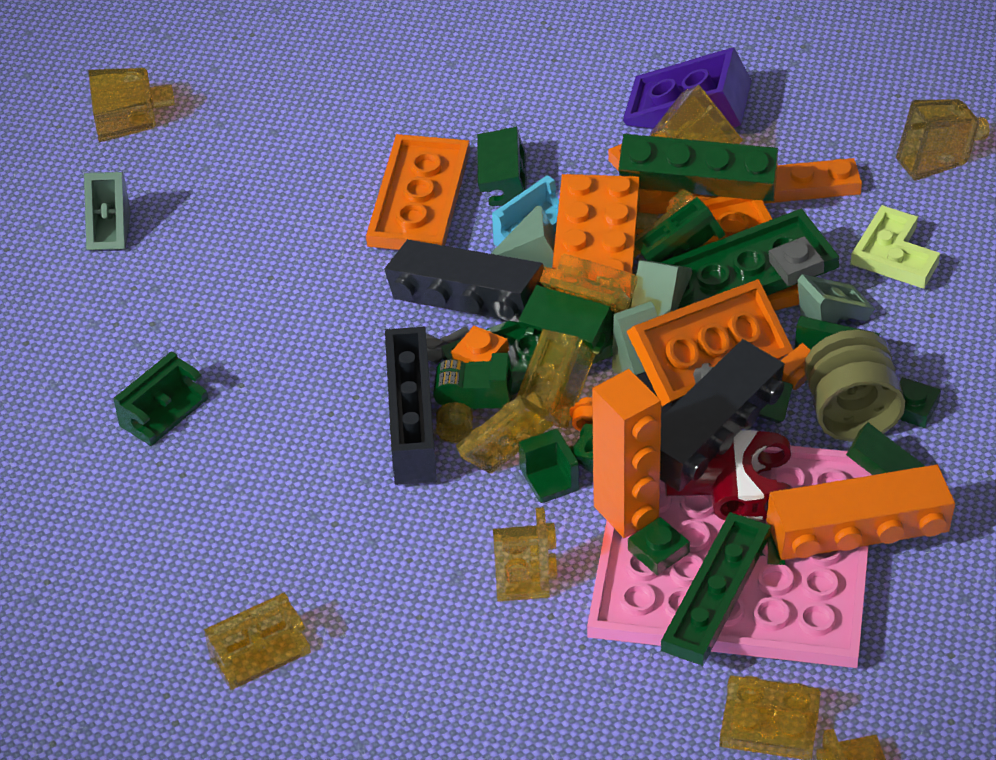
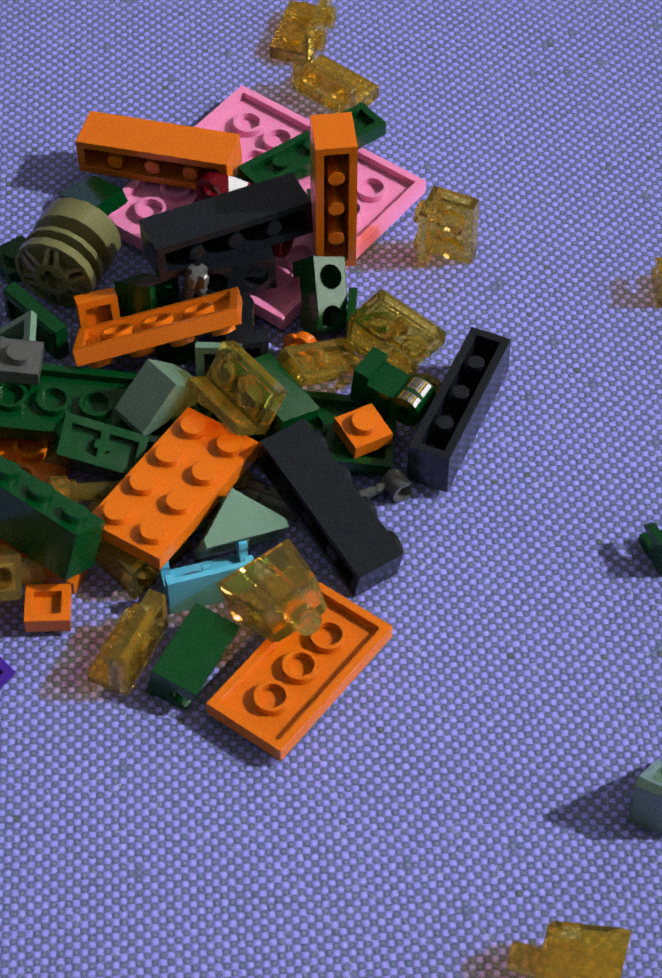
camera: 155 degrees left, 5 degrees up
(459, 202) = (275, 594): none -> clear yellow torso
(552, 148) = (130, 644): none -> clear yellow bracket

